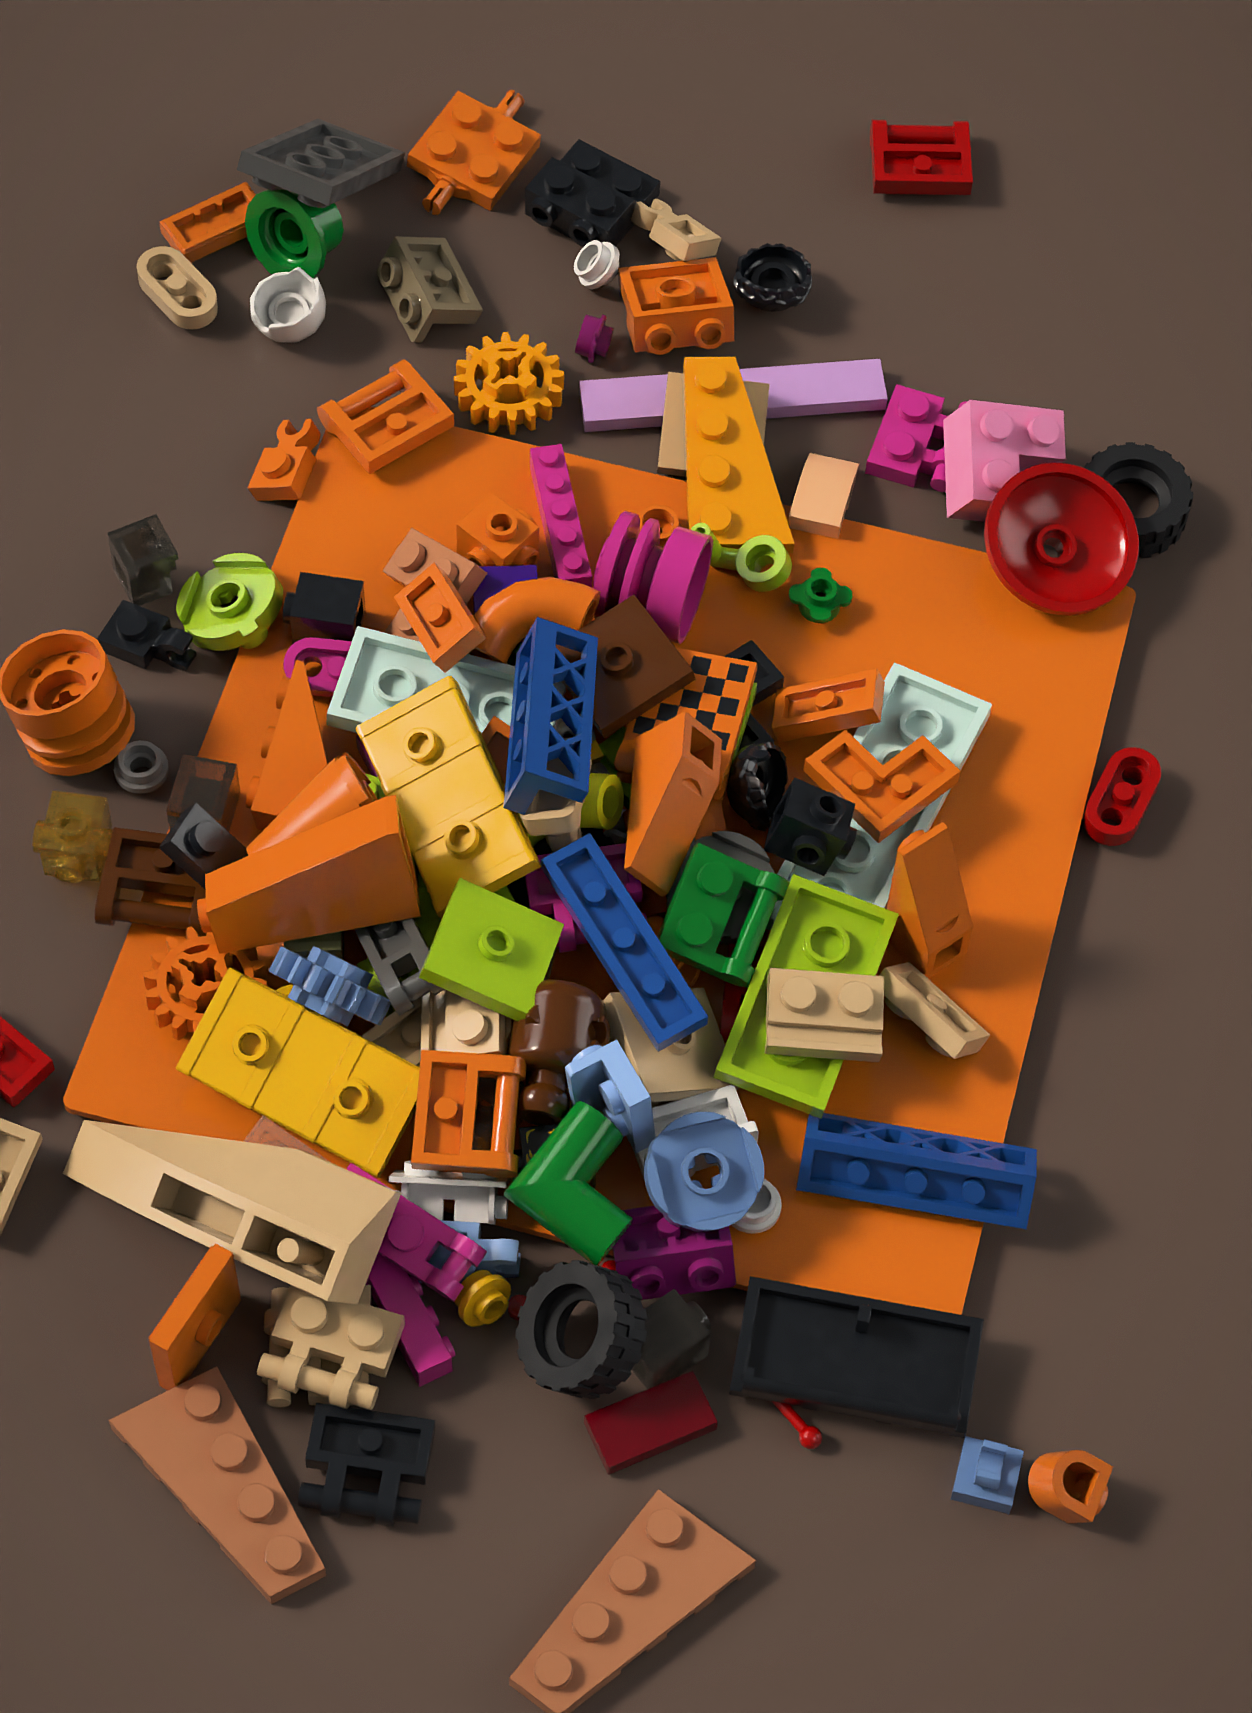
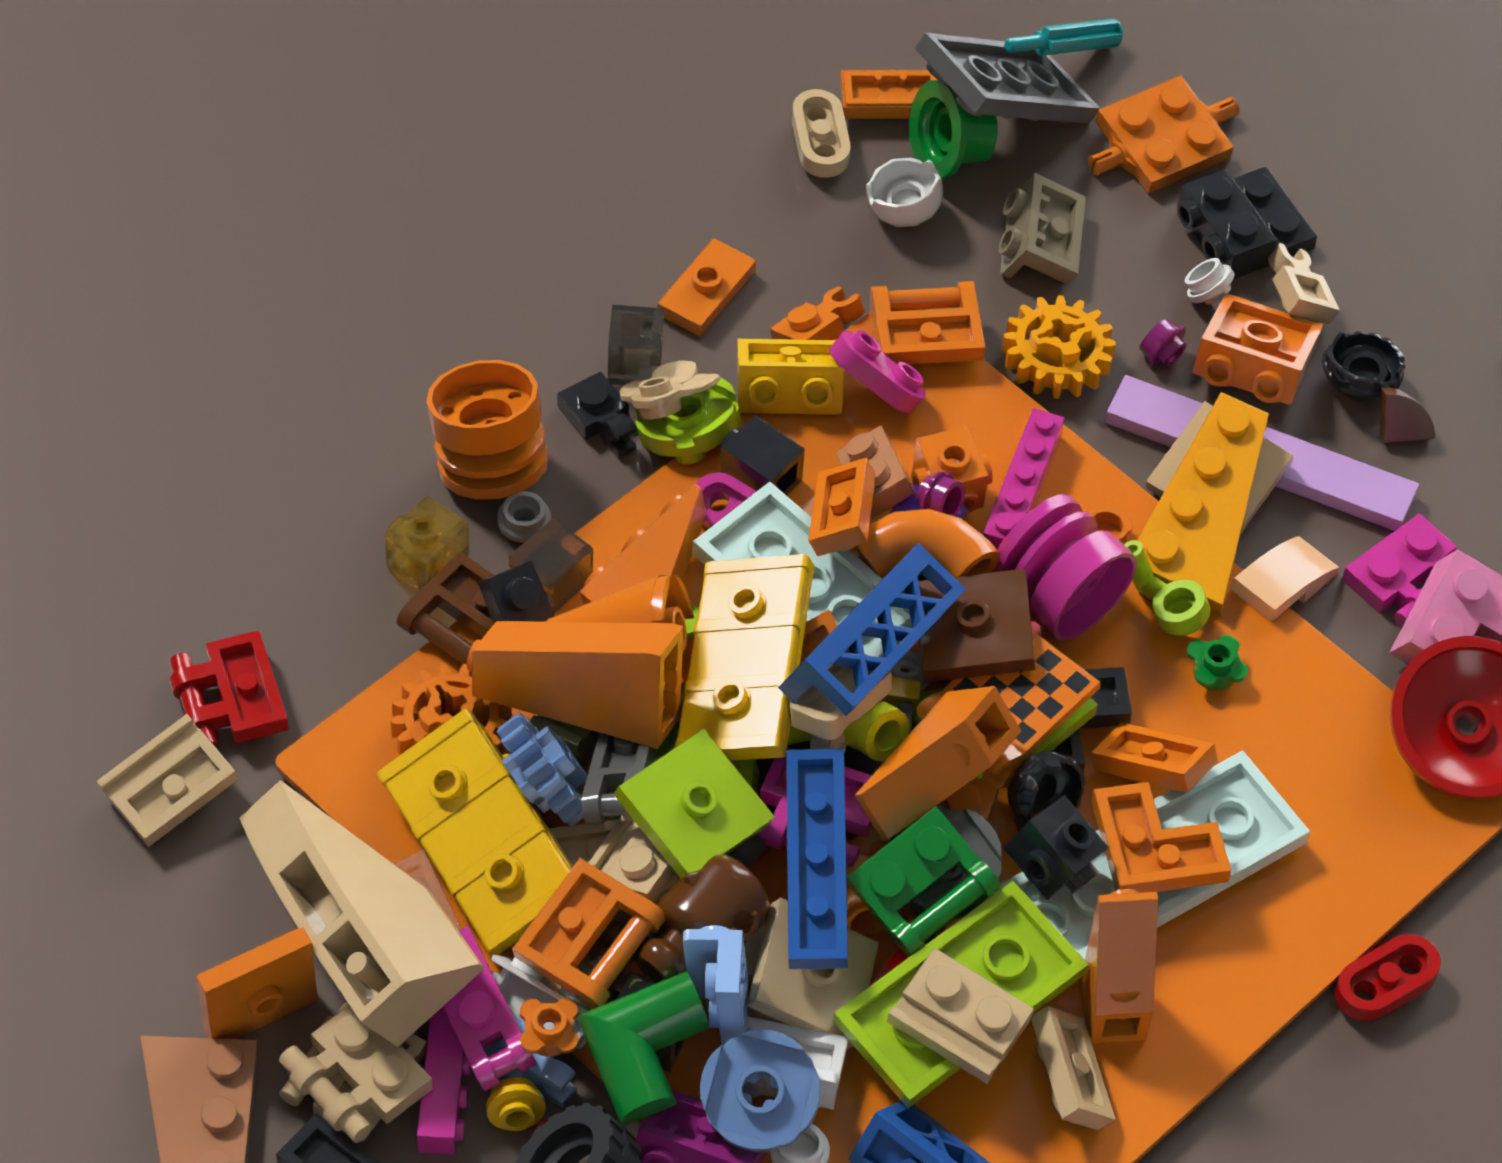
camera: 30 degrees right, 5 degrees down
(165, 475) = (707, 287): none -> orange plate
(199, 586) = (662, 392): none -> tan plate
(299, 520) = (788, 377): none -> yellow bracket
(344, 100) = (1069, 38): none -> teal axle
(359, 475) = (863, 359): none -> dark pink plate
(479, 1230) = (554, 1041): none -> orange plate
(512, 564) = (941, 493): none -> magenta plate
(831, 308) = (1403, 418): none -> reddish brown tile

